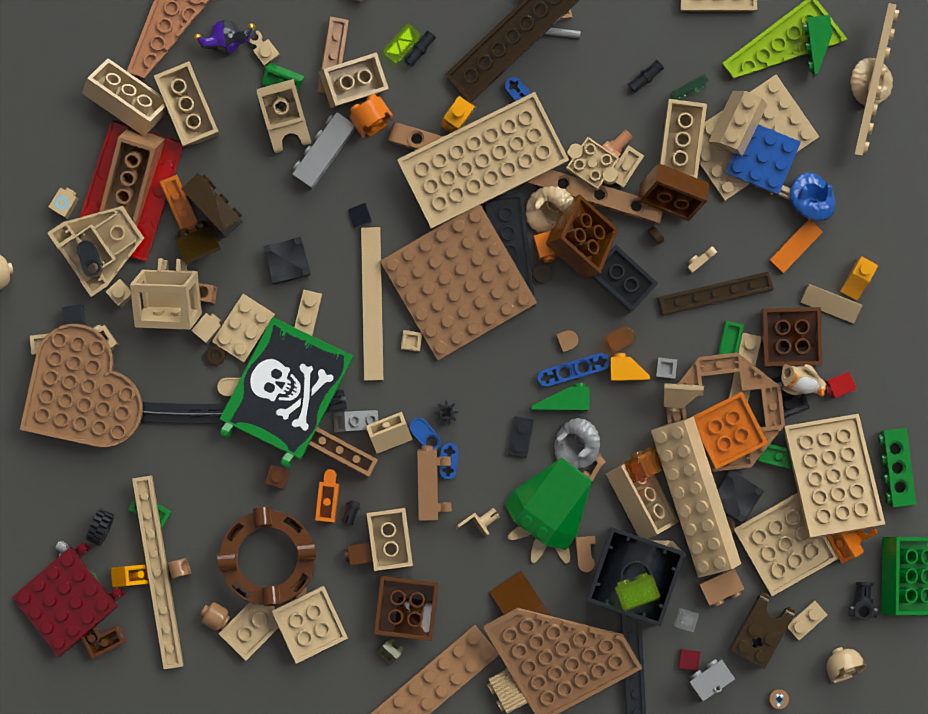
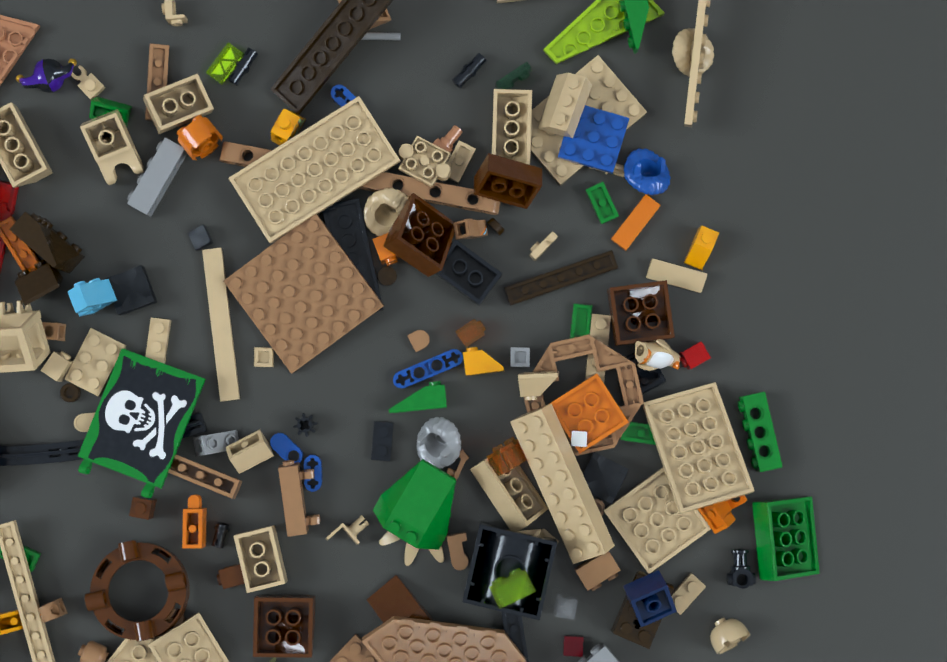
camera: 10 degrees left, 0 degrees up
(250, 262) = (91, 296): none -> medium azure brick
(633, 235) = (472, 228): none -> medium nougat leg
(717, 454) = (579, 438): none -> white sticker
(764, 223) = (602, 203): none -> green plate
(770, 618) = (650, 598): none -> dark blue slope

